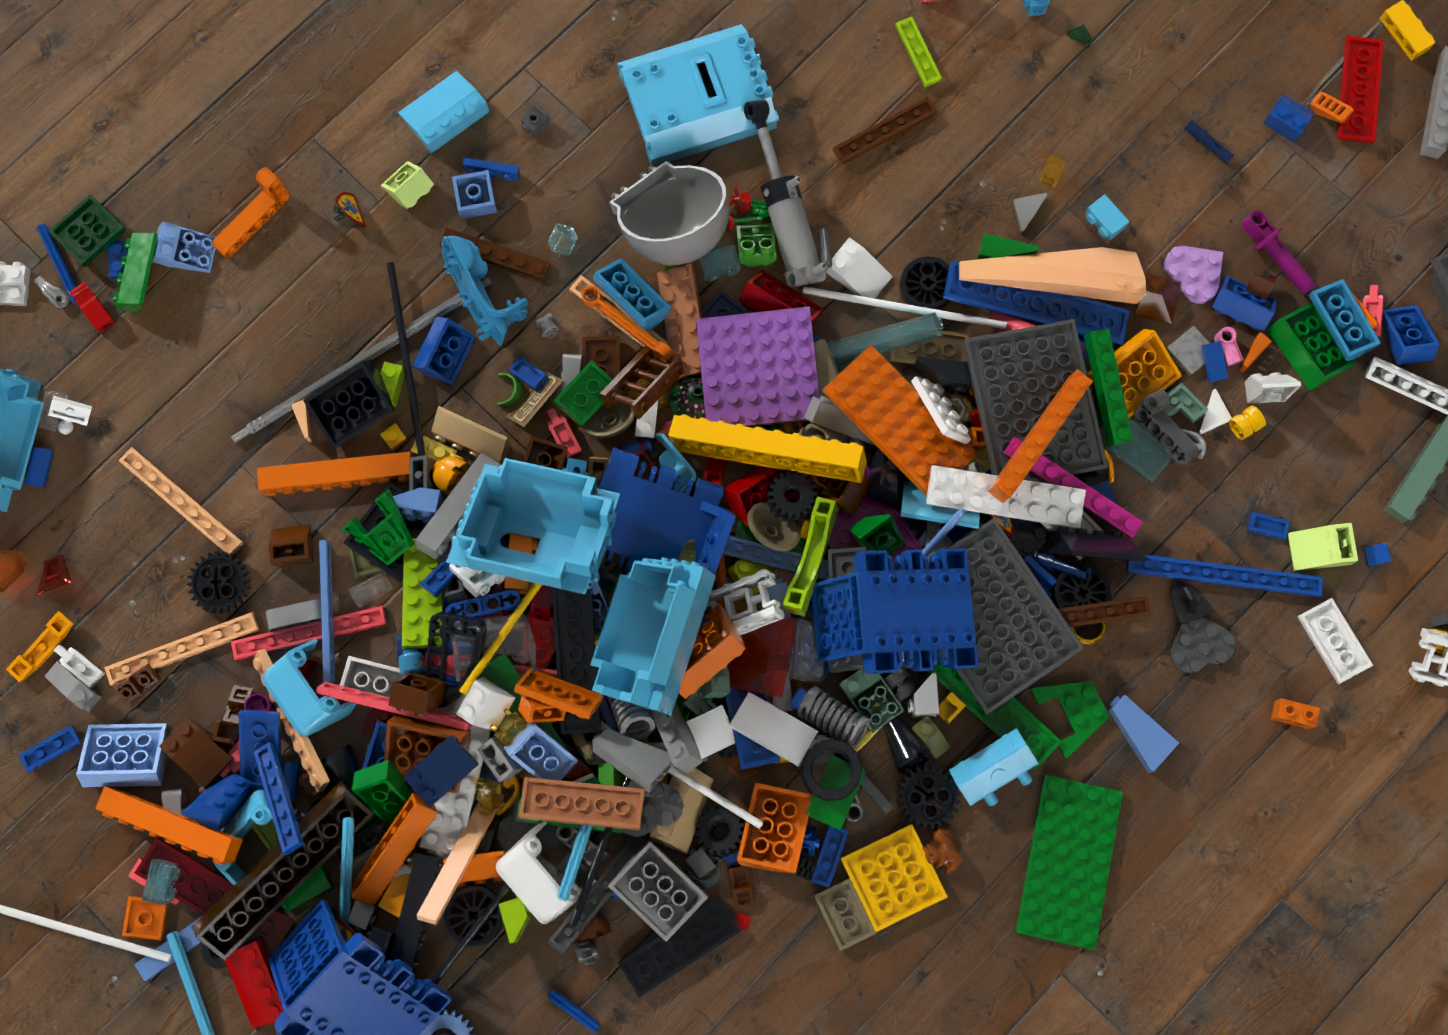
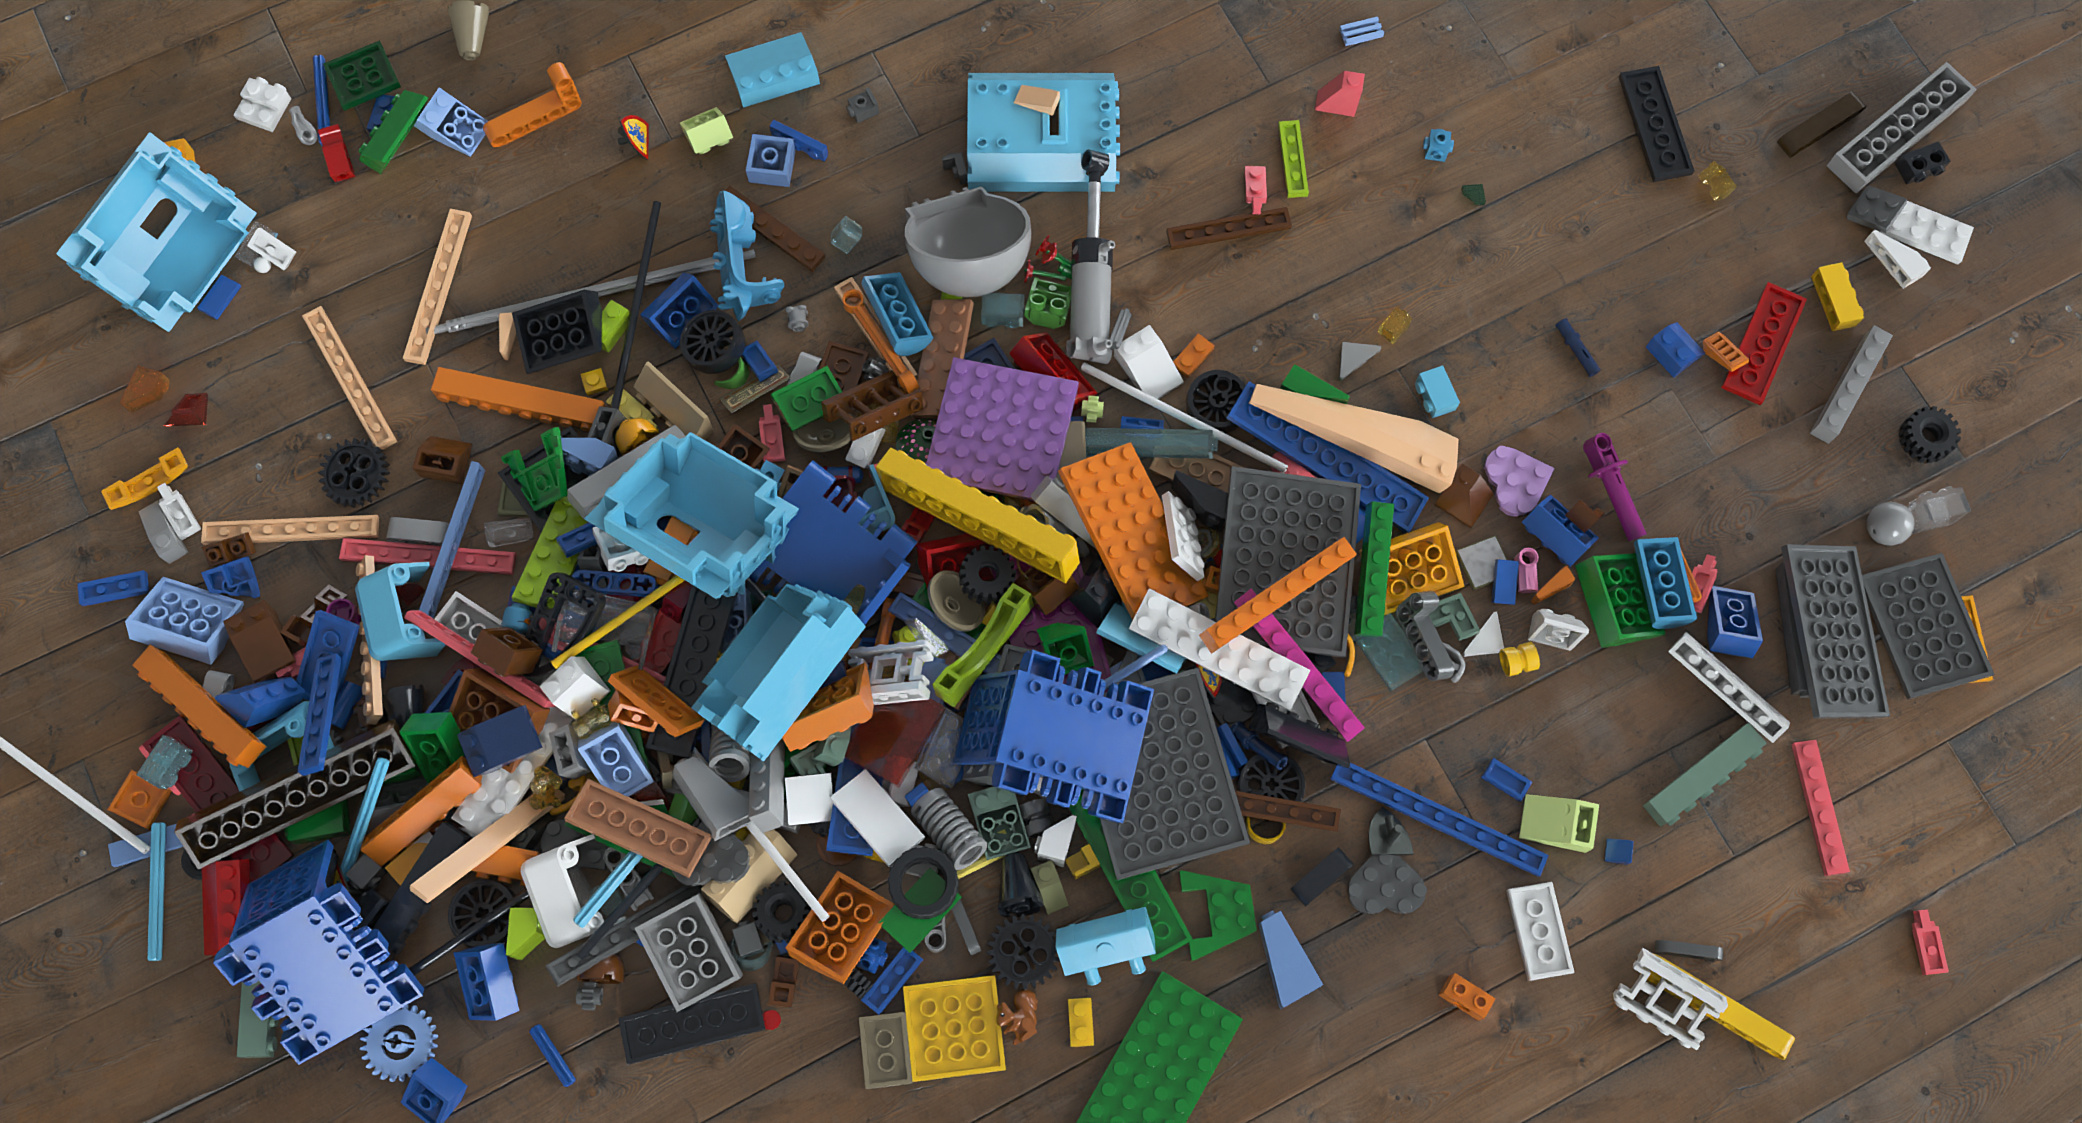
camera: 15 degrees right, 5 degrees down
(150, 706) = (233, 579): none -> blue slope
(165, 157) = (468, 26): none -> dark tan cone
(227, 397) = (437, 286): none -> light nougat plate
(484, 363) = (712, 341): none -> black piece
(499, 970) = (486, 982): none -> blue slope
(629, 349) = (874, 368): none -> dark grey gear
(637, 149) = (956, 162): none -> dark grey bracket
(688, 69) = (1038, 99): none -> light nougat slope
(755, 563) = (921, 632): none -> clear slope
(825, 324) = (1092, 409): none -> yellowish green gear
(870, 324) = (1141, 423): none -> blue plate
(892, 250) = (1193, 355): none -> orange plate
(895, 87) = (1255, 187): none -> coral hinge
(993, 838) = (1080, 1022): none -> yellow plate
(1147, 655) = (1322, 876): none -> black beam

